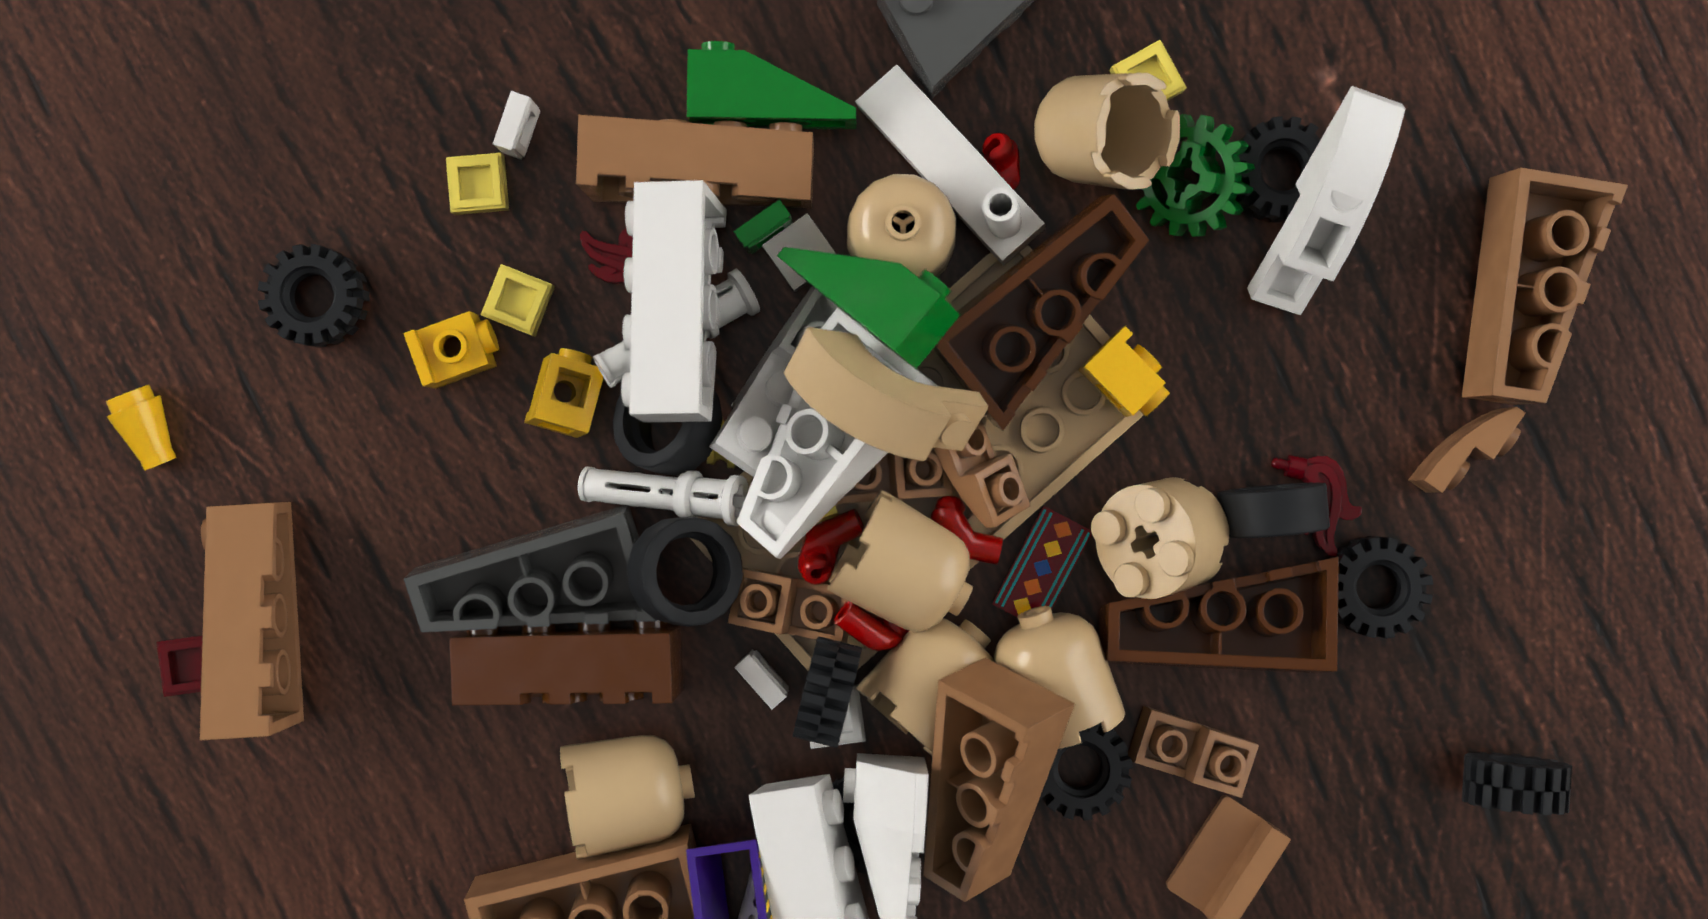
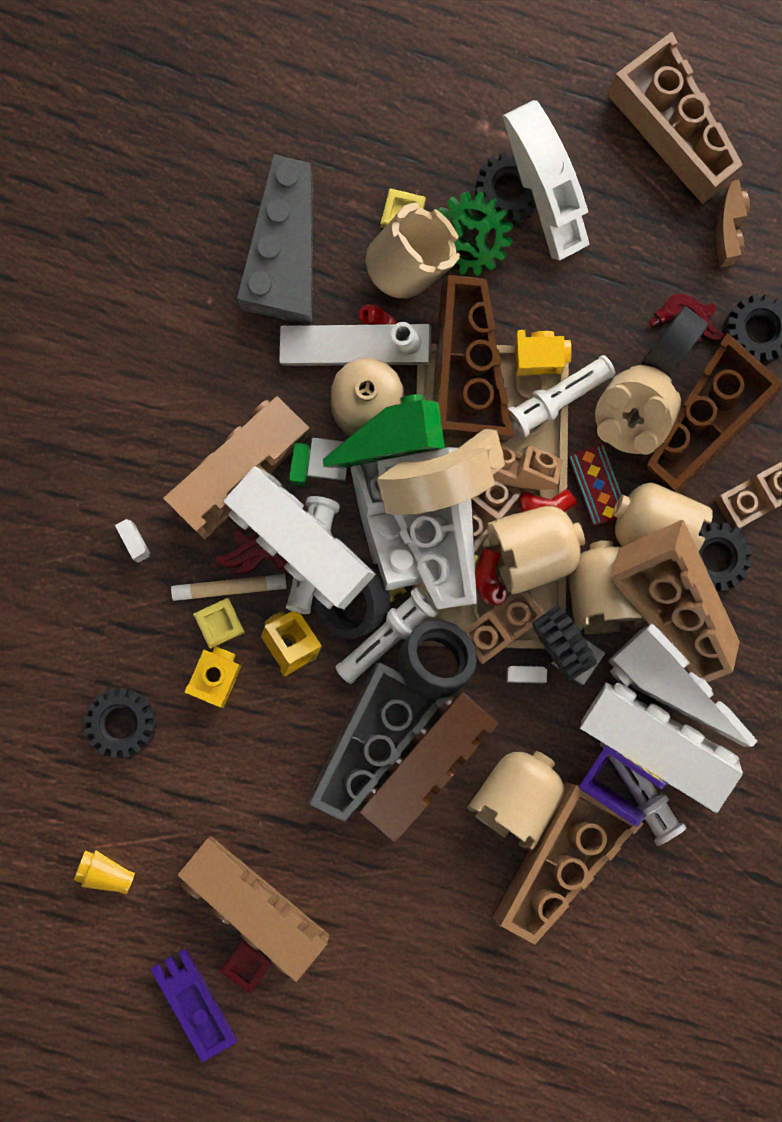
camera: 50 degrees left, 5 degrees down
(97, 649) = (195, 1006): none -> dark purple hinge
(477, 183) = (141, 589): light yellow tile -> none
(562, 272) = (228, 587): none -> tan bar
(749, 90) = (230, 406): green slope -> none
(870, 631) = (551, 595): red arm -> none
(1075, 432) = (545, 404): none -> white pin

